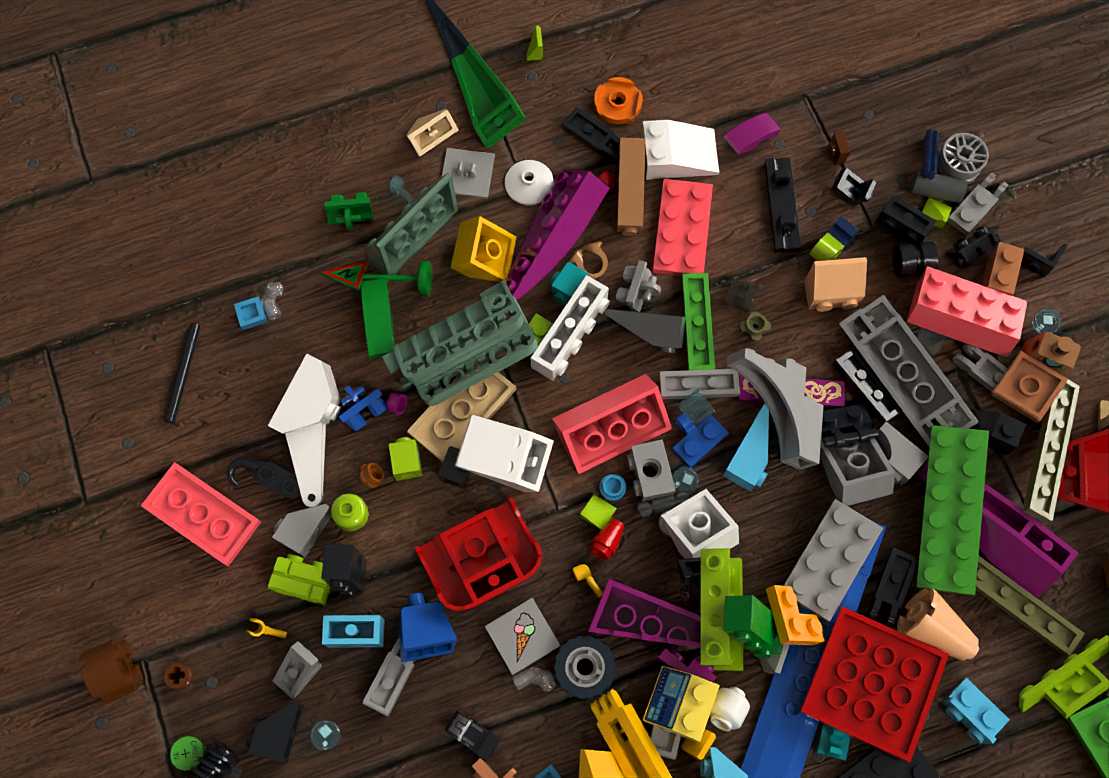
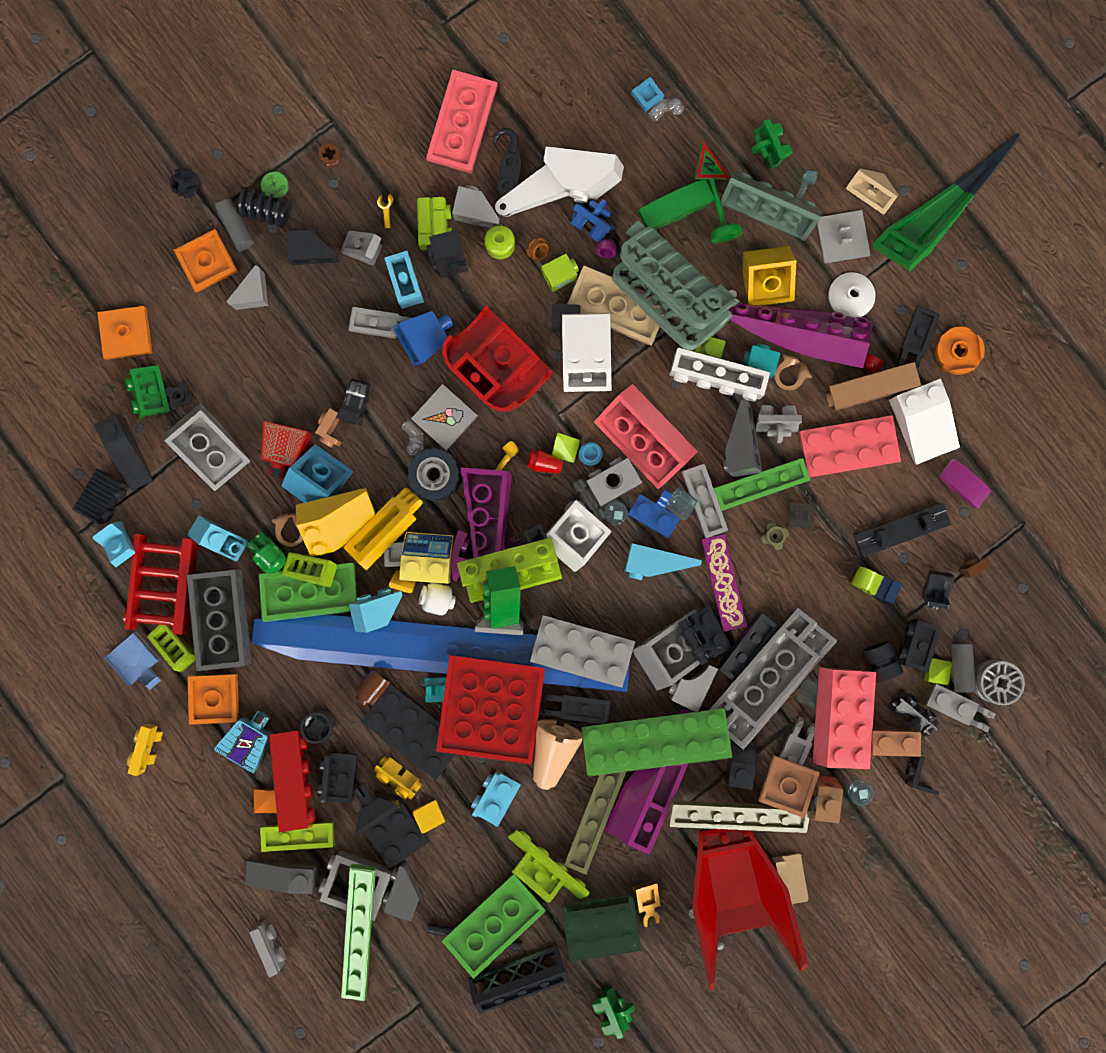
camera: 70 degrees right, 15 degrees up
(110, 671) = (314, 100): reddish brown brick -> none
(182, 373) = (577, 58): black bar -> none
(325, 735) = (320, 287): clear light blue tile -> none
(535, 49) = (991, 257): lime slope -> none
(790, 624) = (515, 627): light orange plate -> none
(794, 415) = (700, 588): light grey arch -> none
(836, 284) = (833, 596): light nougat slope -> none
(930, 154) = (993, 652): dark blue axle -> none

